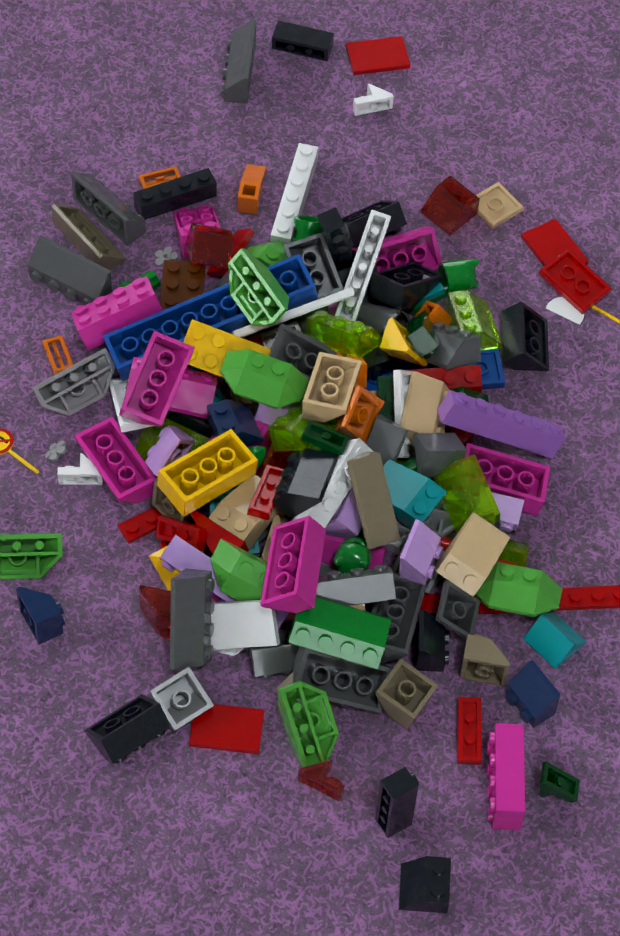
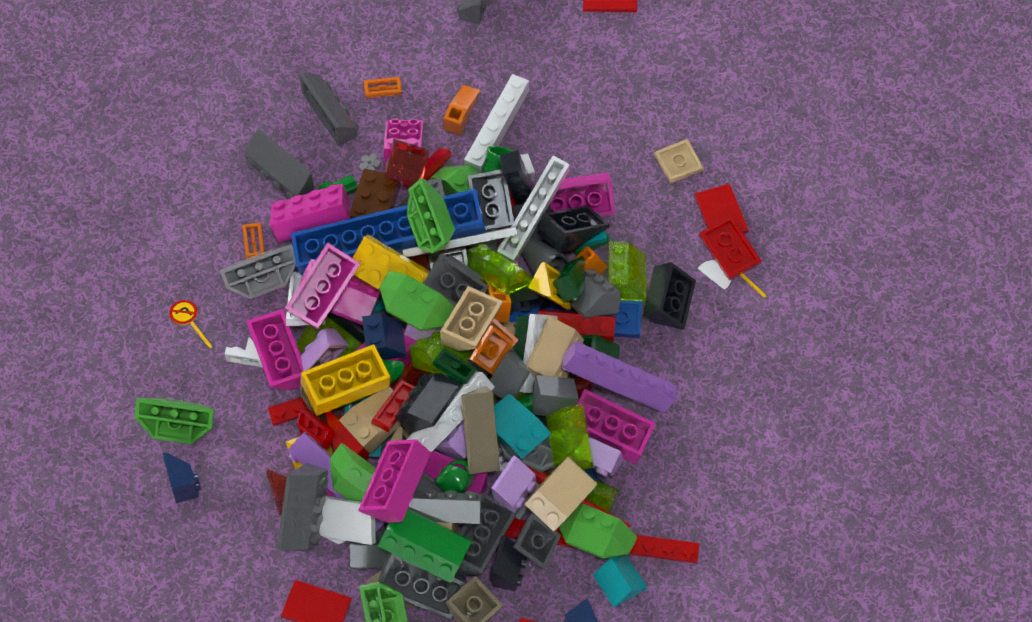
camera: 15 degrees right, 5 degrees up
(56, 450) = (231, 329): light grey plant -> none
(86, 236) = (304, 133): dark tan slope -> none
(128, 728) = (232, 593): black slope -> none
(175, 194) = (391, 104): black brick -> none
(181, 698) = (281, 575): light grey slope -> none
(356, 222) = (571, 152): black slope -> none
(376, 100) = (596, 42): white slope -> none
(451, 205) = (635, 156): clear red slope -> none
(459, 274) = (624, 225): green piece -> none
(484, 661) = (547, 590): dark tan slope -> none

